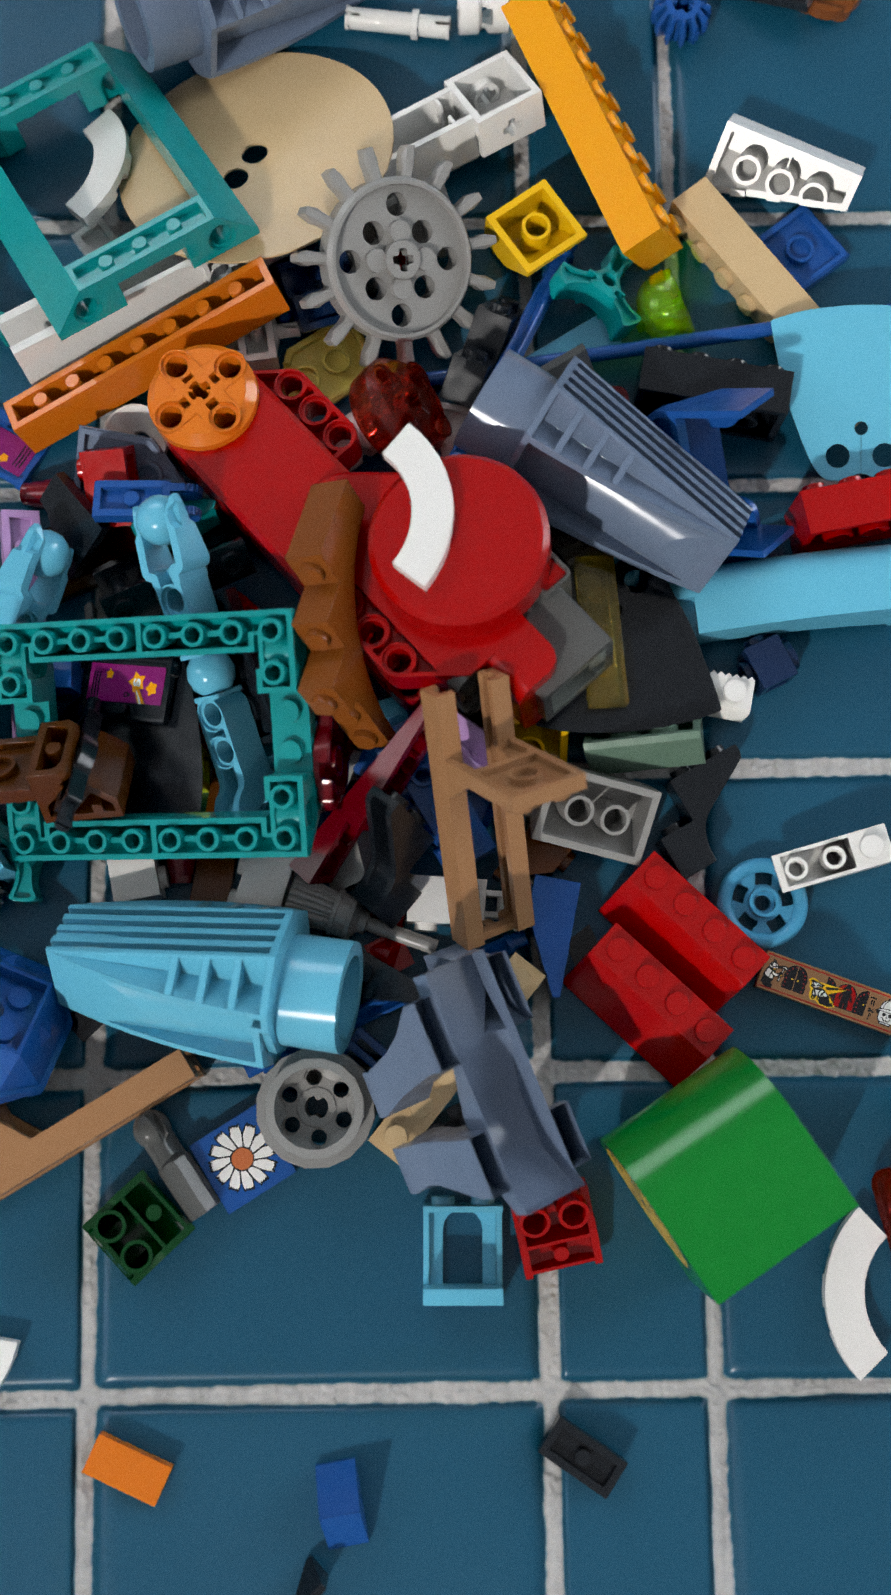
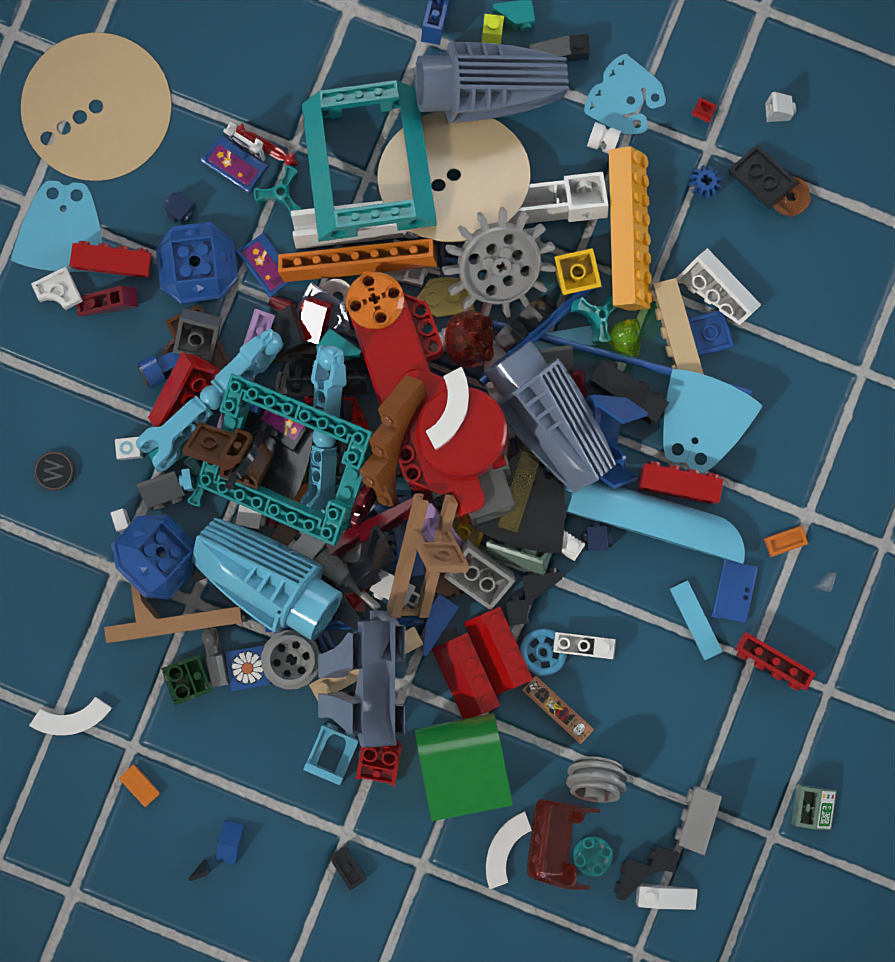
camera: 25 degrees right, 5 degrees up
(93, 238) = (358, 182): white tile -> none
(109, 167) = (378, 149): white tile -> none
(115, 498) = (322, 335): blue hinge -> none
(398, 22) = (558, 126): white pin -> none

